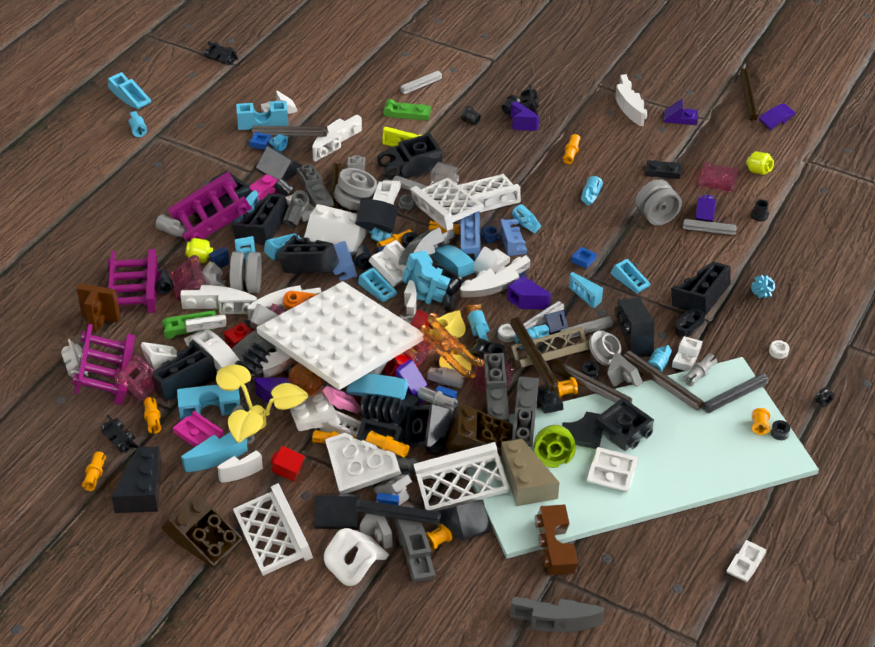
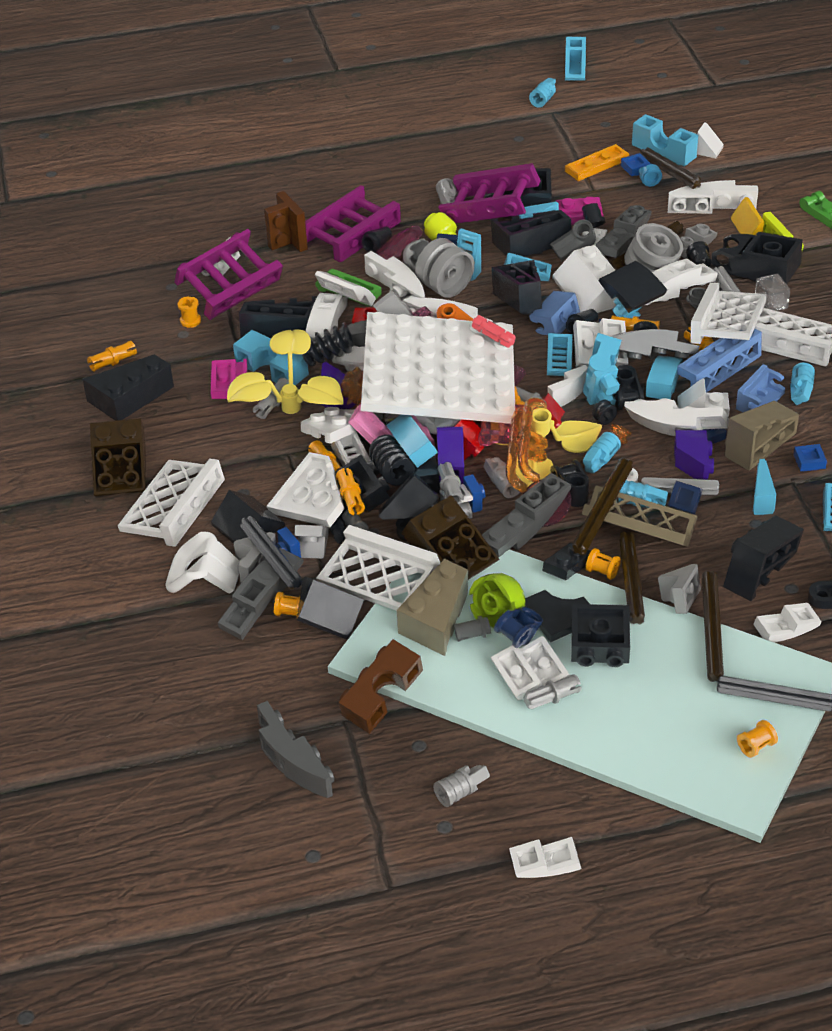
camera: 50 degrees right, 0 degrees up
(106, 406) = (189, 314): none -> light orange bush
(124, 438) = (170, 340): black hinge -> none
(142, 383) = (228, 308): clear pink plate -> none
(152, 415) = (214, 341): light orange pin -> none
(157, 354) = (280, 290): white slope -> none
(213, 453) = (212, 403): medium azure slope -> none
(226, 55) = (711, 67): black hinge -> none
(232, 153) = (596, 162): none -> light orange tile
(235, 469) = (218, 431): white slope -> none
(277, 164) = (621, 193): slope -> none
(287, 463) = (254, 451): red brick -> none
(347, 290) = (493, 331): none -> coral axle
(372, 139) = (747, 218): none -> yellow slope
(379, 177) = (699, 253): none -> black piece
(490, 234) = (740, 375): dark blue plate -> none
(525, 410) = (524, 553): dark grey slope -> none
(546, 260) = (759, 433): none -> dark tan wedge
(559, 468) = (472, 628): none -> dark grey pin
(588, 449) = (519, 625): none -> dark blue piece
(590, 366) = (654, 566): black bush -> none
(591, 326) = (714, 526): light grey axle -> none
(604, 346) = (702, 544): light grey piece -> none
(641, 472) = (552, 692): none -> light grey axle
(660, 357) = (742, 606): medium azure hinge -> none
(660, 559) = (459, 784): none -> light grey hinge
(700, 369) = (767, 643): light grey pin -> none
(782, 425) = (770, 773): black bush -> none

